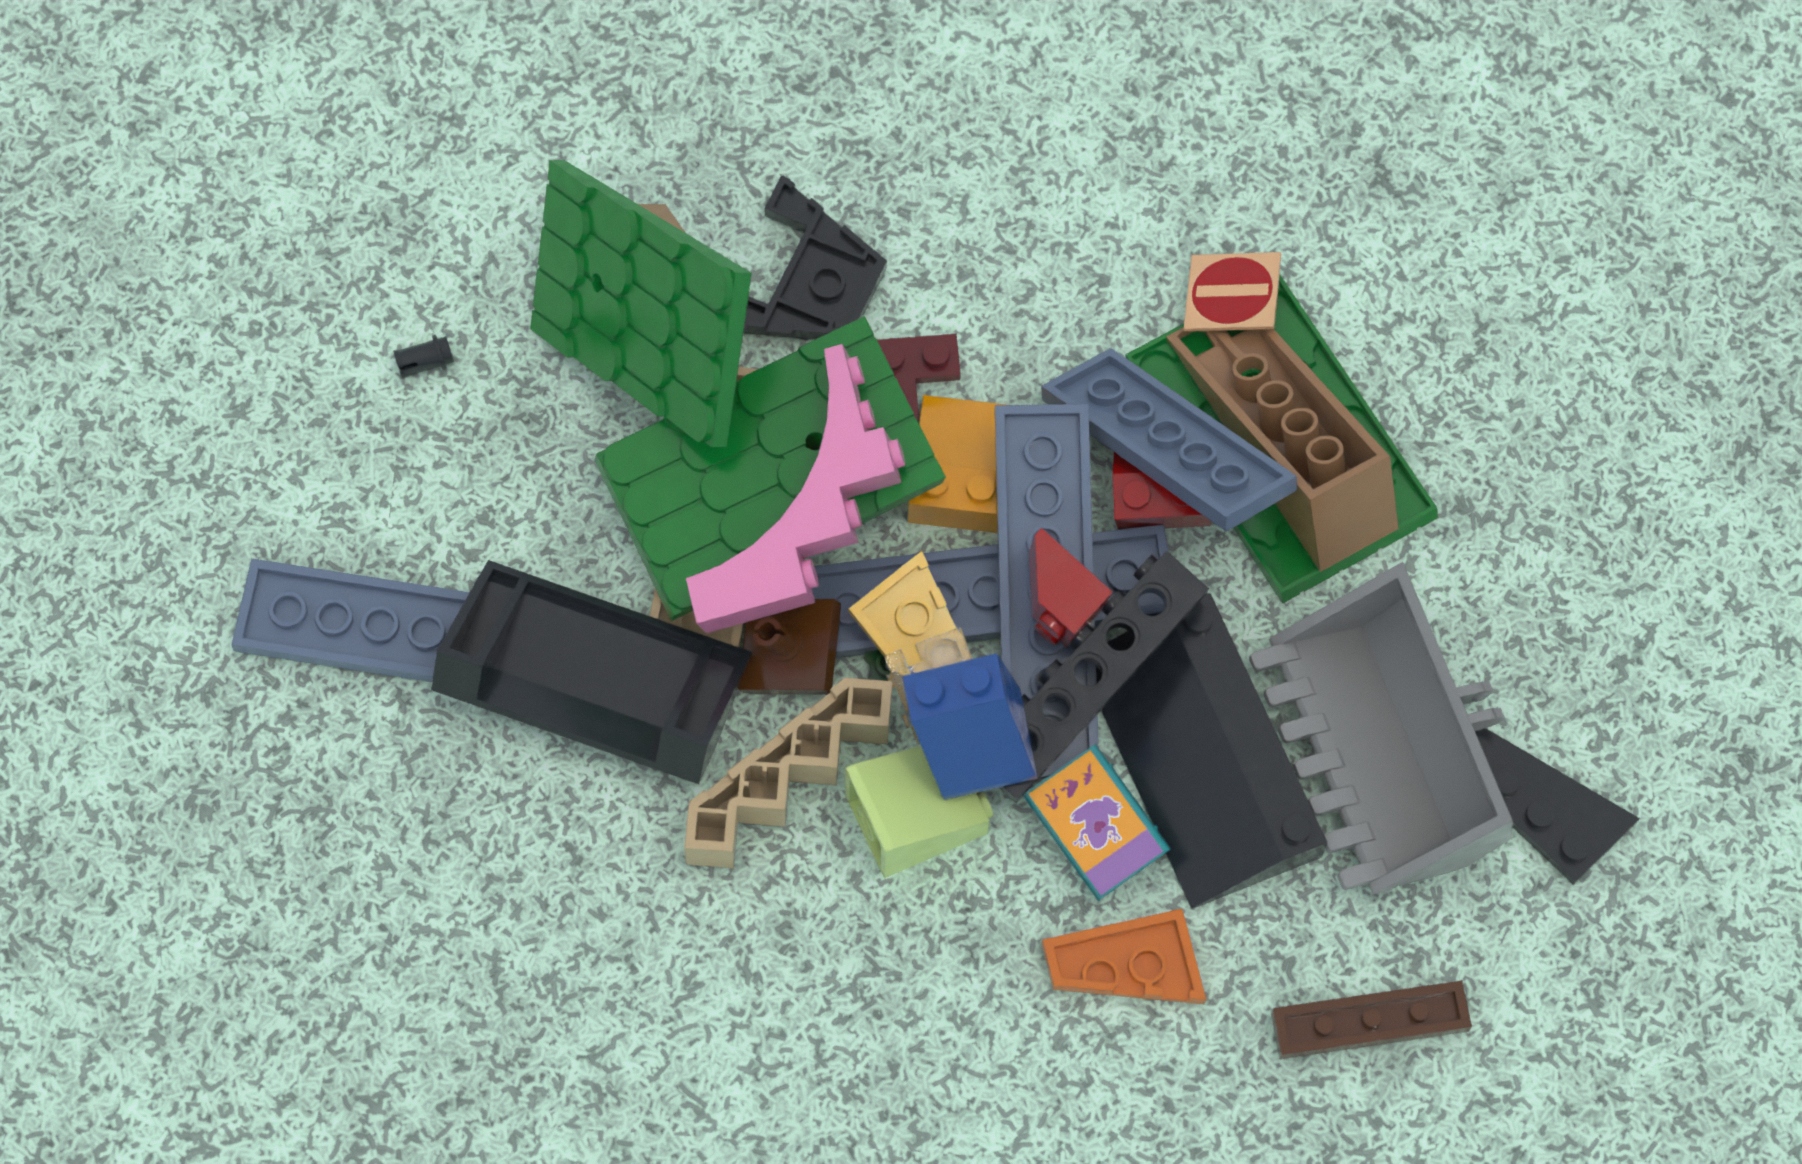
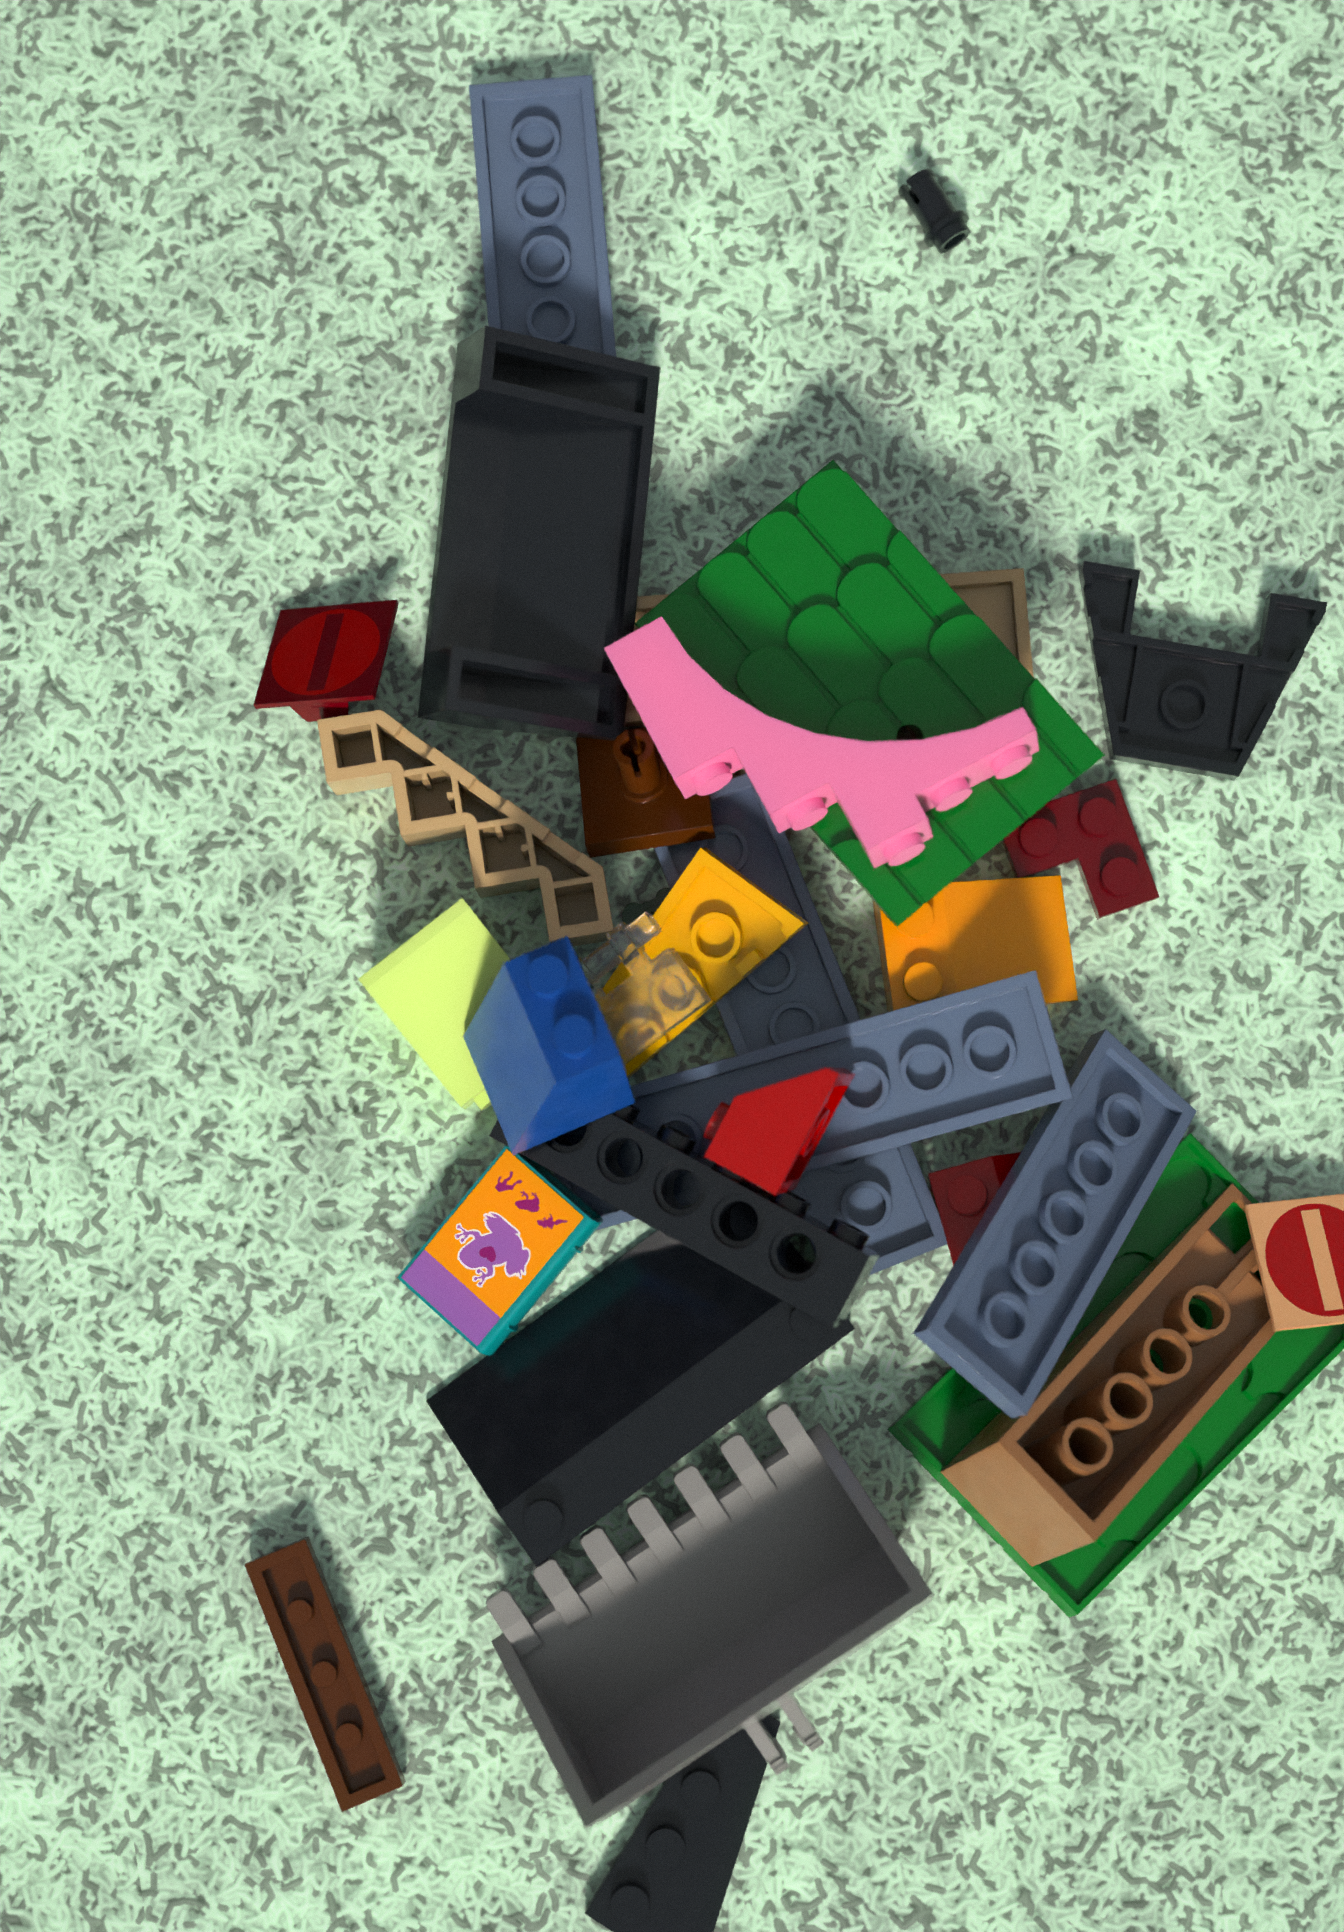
camera: 80 degrees right, 15 degrees up
(635, 838) = (326, 658): none -> piece
(640, 302) = (1055, 447): green piece -> none
(1128, 959) = (331, 1333): orange wing -> none

